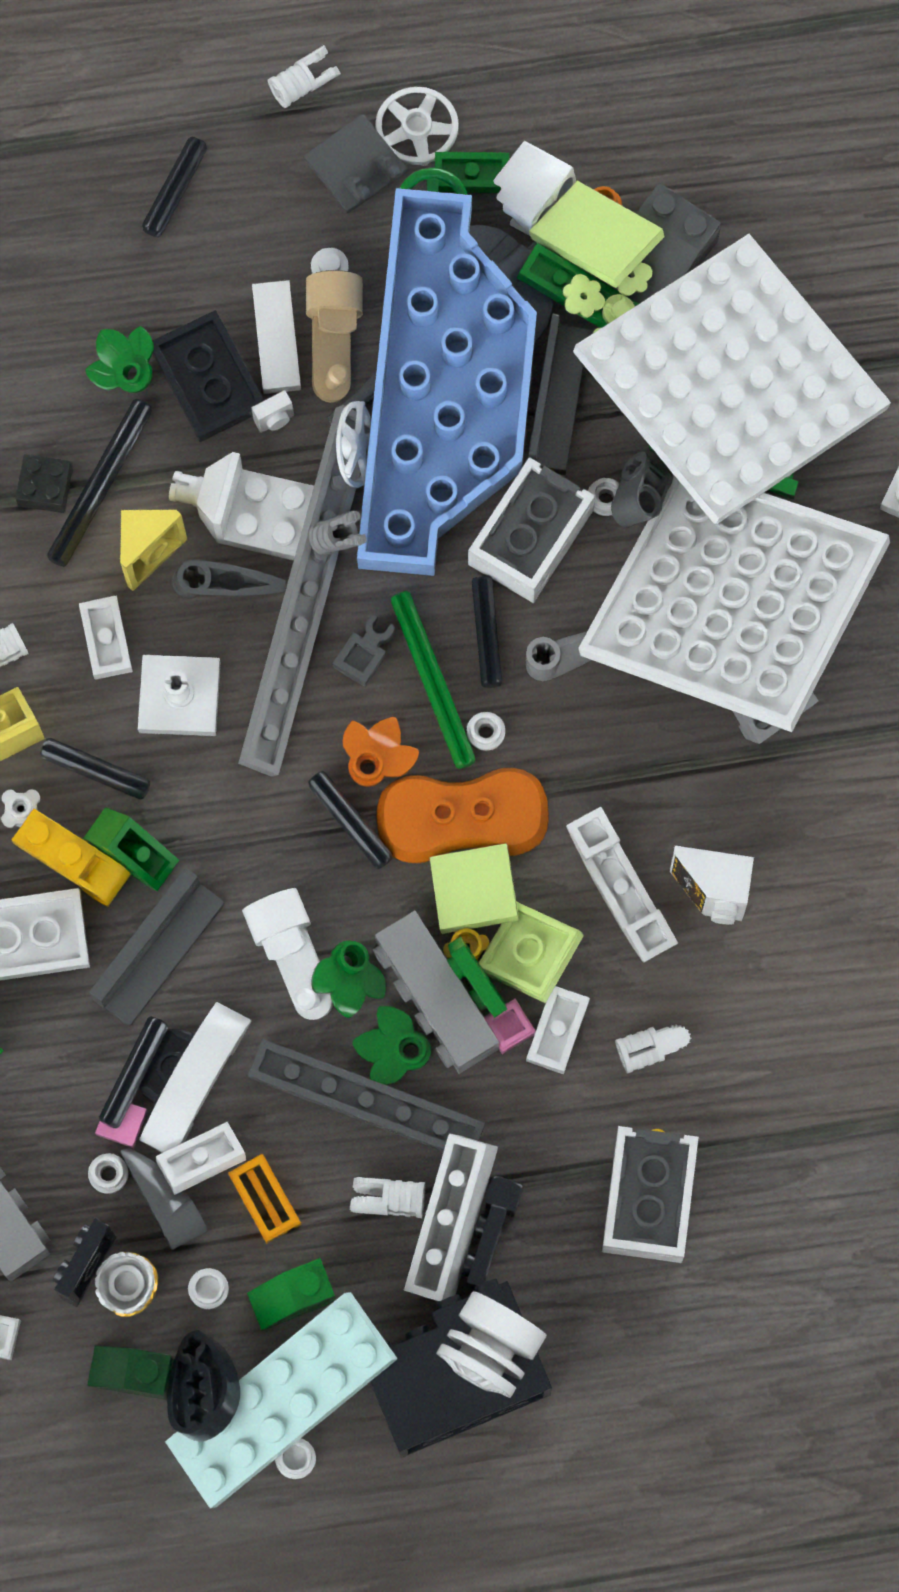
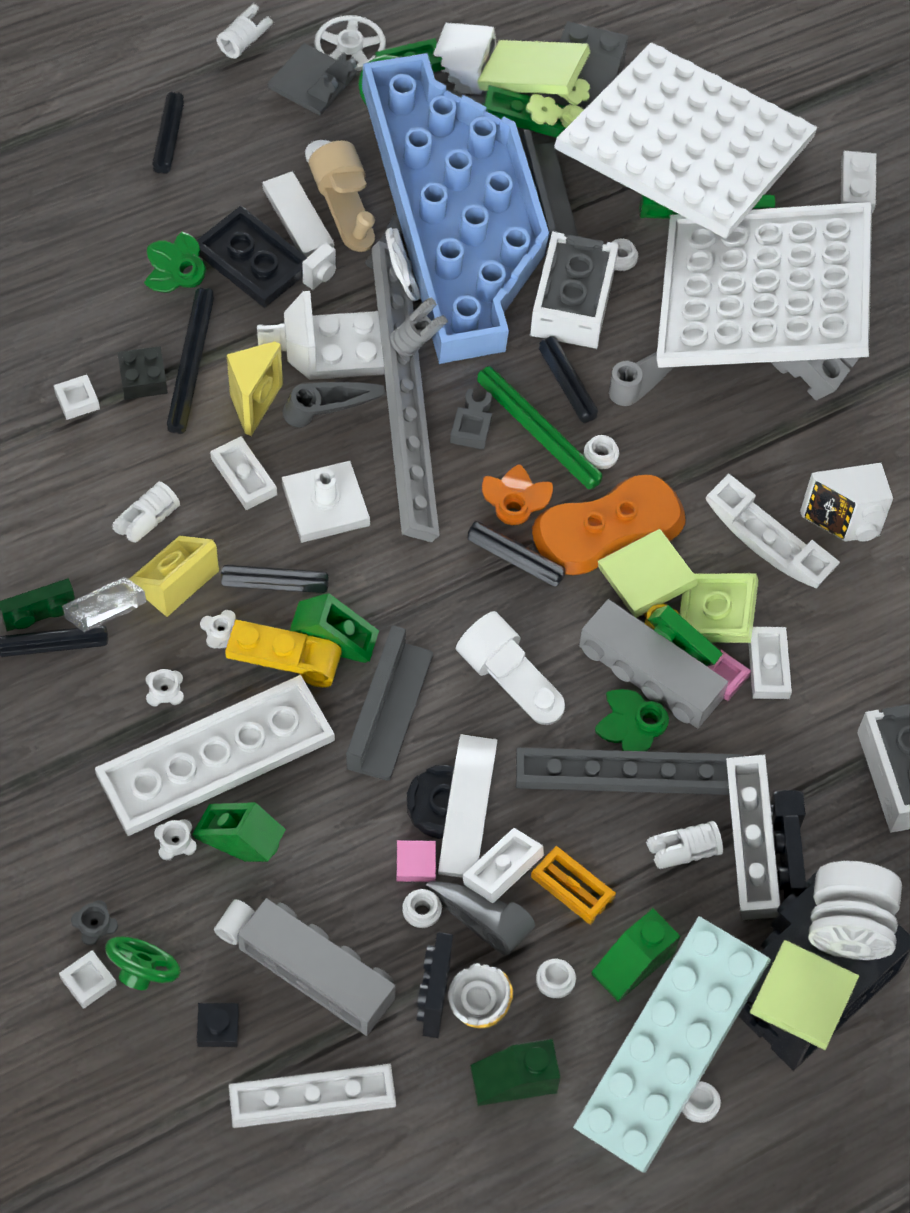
camera: 25 degrees left, 15 degrees down
(133, 1072) = (412, 811): black axle -> none
(205, 1367) = (603, 1044): black piece -> none
(345, 983) = (570, 675): green plate -> none
(416, 1403) = (804, 994): none -> yellowish green tile
(640, 491) = (649, 238): dark grey piece -> none
(661, 1041) = (858, 646): white hinge -> none

